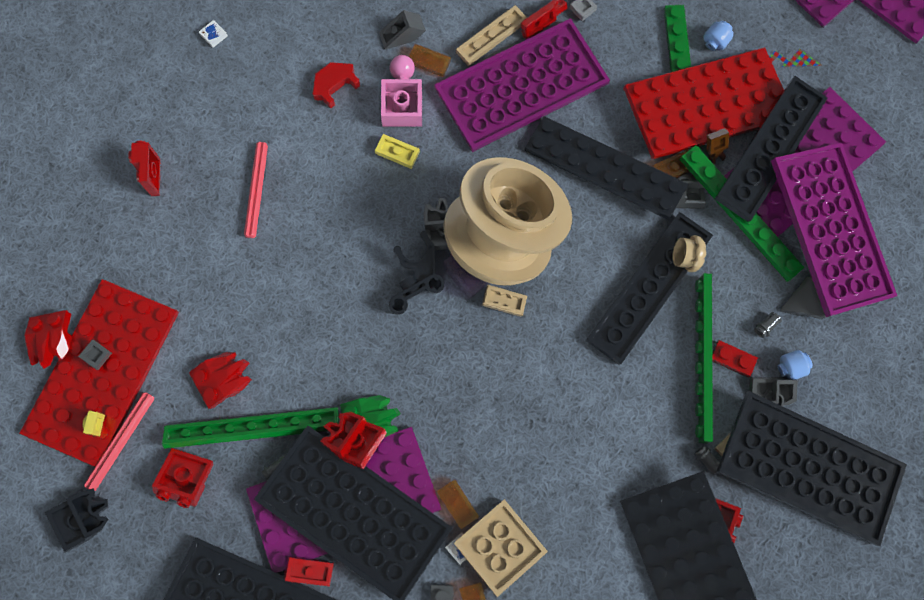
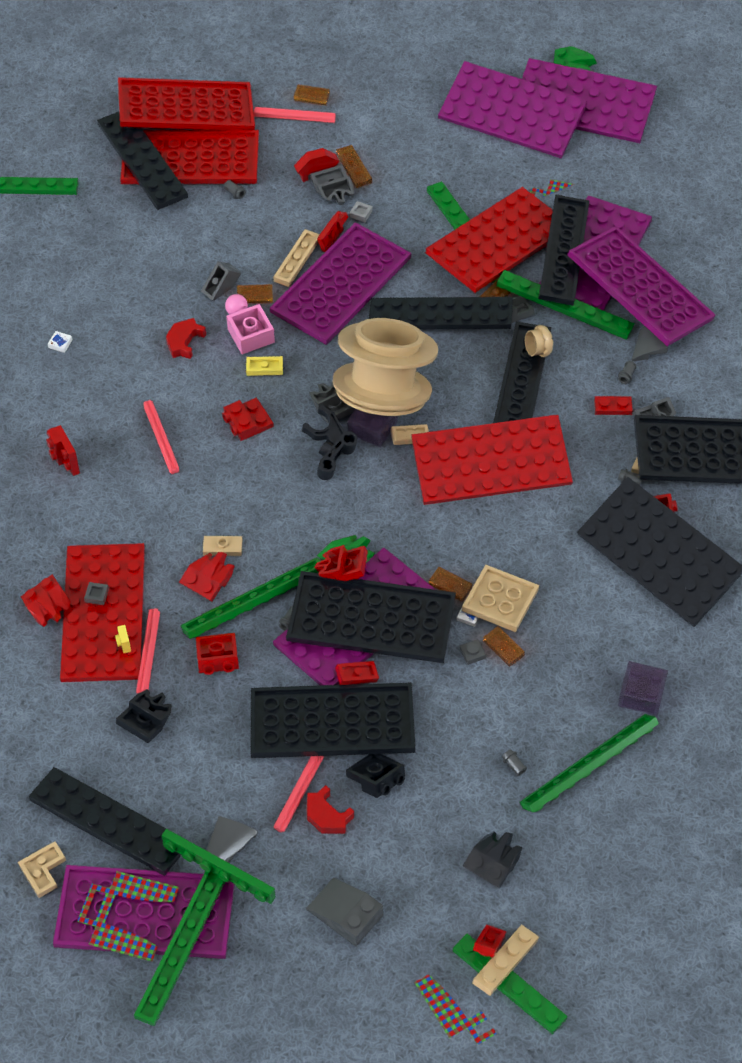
camera: 20 degrees left, 20 degrees down
(253, 347) = (227, 544): none -> tan plate
(350, 206) = (247, 418): none -> red plate
(573, 371) = (491, 459): none -> red plate
(703, 366) = (591, 413): green plate -> none
(716, 144) = (520, 263): reddish brown plate -> none
(718, 36) = (481, 191): light blue head -> none
(795, 365) = (662, 388): light blue head -> none

